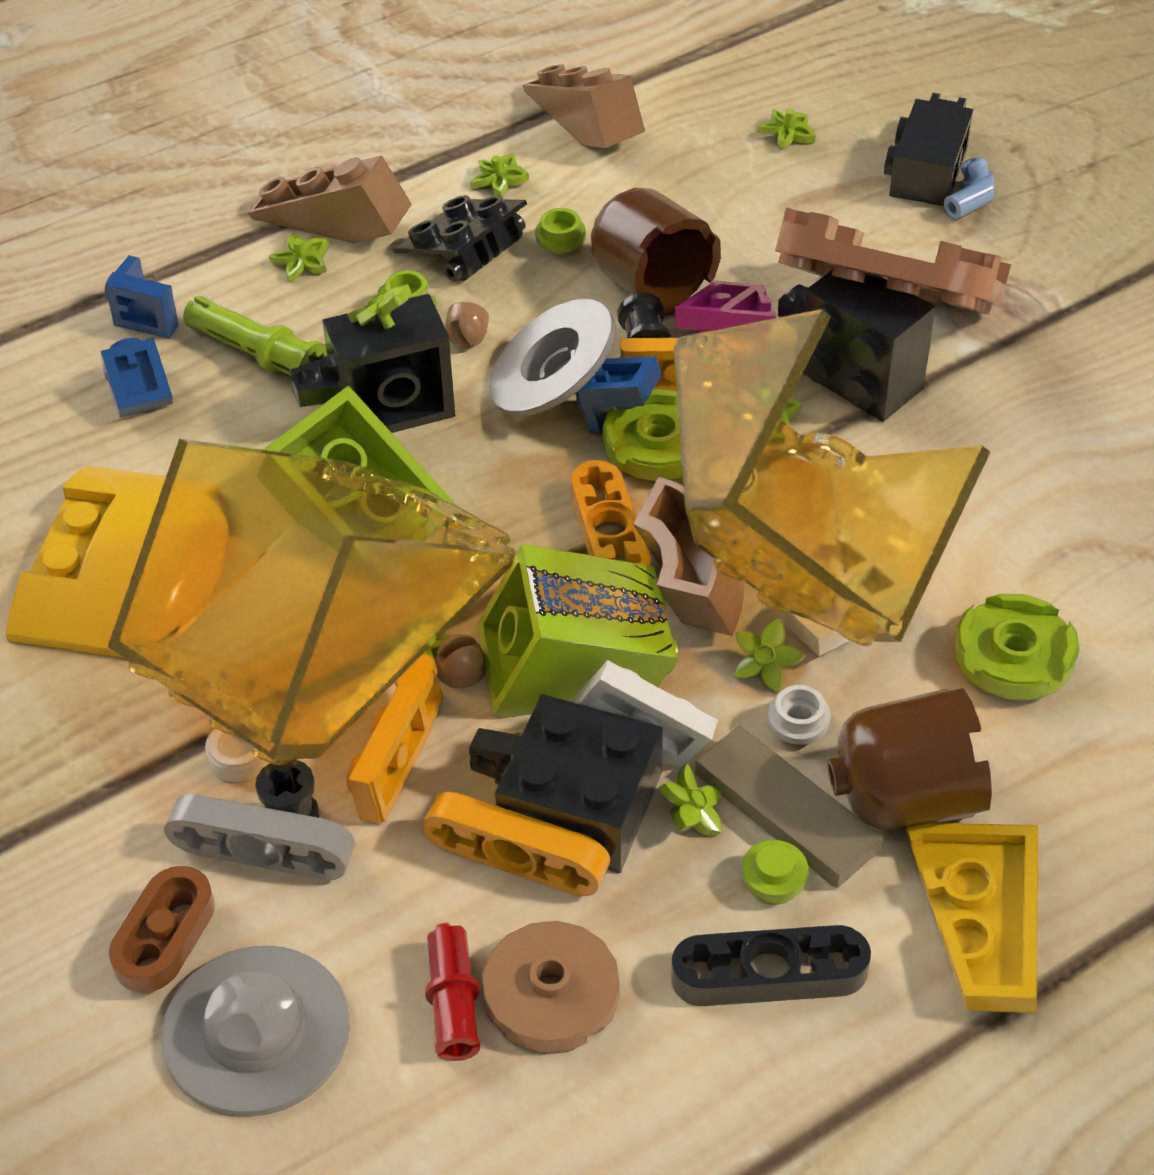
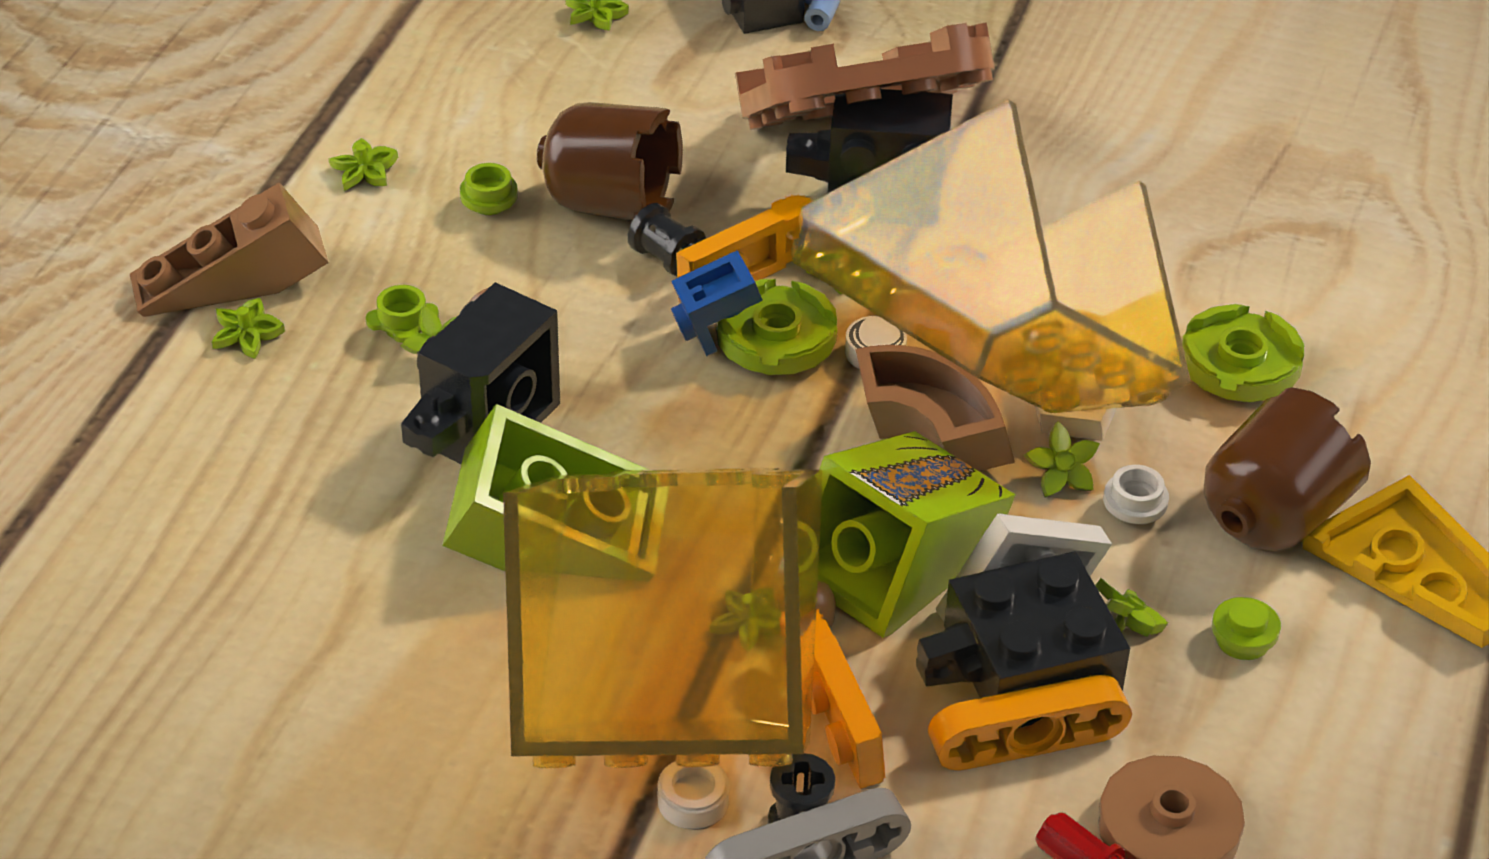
camera: 40 degrees left, 5 degrees down
(85, 562) = (386, 696): yellow slope -> none
(136, 376) = (212, 513): blue bracket -> none
(140, 302) = (135, 443): blue bracket -> none
(272, 346) = (324, 421): lime pin -> none
(381, 305) = (480, 310): lime plant -> none
(467, 233) = (394, 227): black hinge -> none
(552, 357) = (625, 300): hat -> none
(590, 105) = (397, 61): medium nougat slope -> none
(615, 508) = (783, 404): light orange beam -> none
(724, 306) = (738, 183): dark pink wing -> none
(788, 943) = (1310, 725): black beam -> none
(789, 805) = (1200, 570): dark tan tile -> none

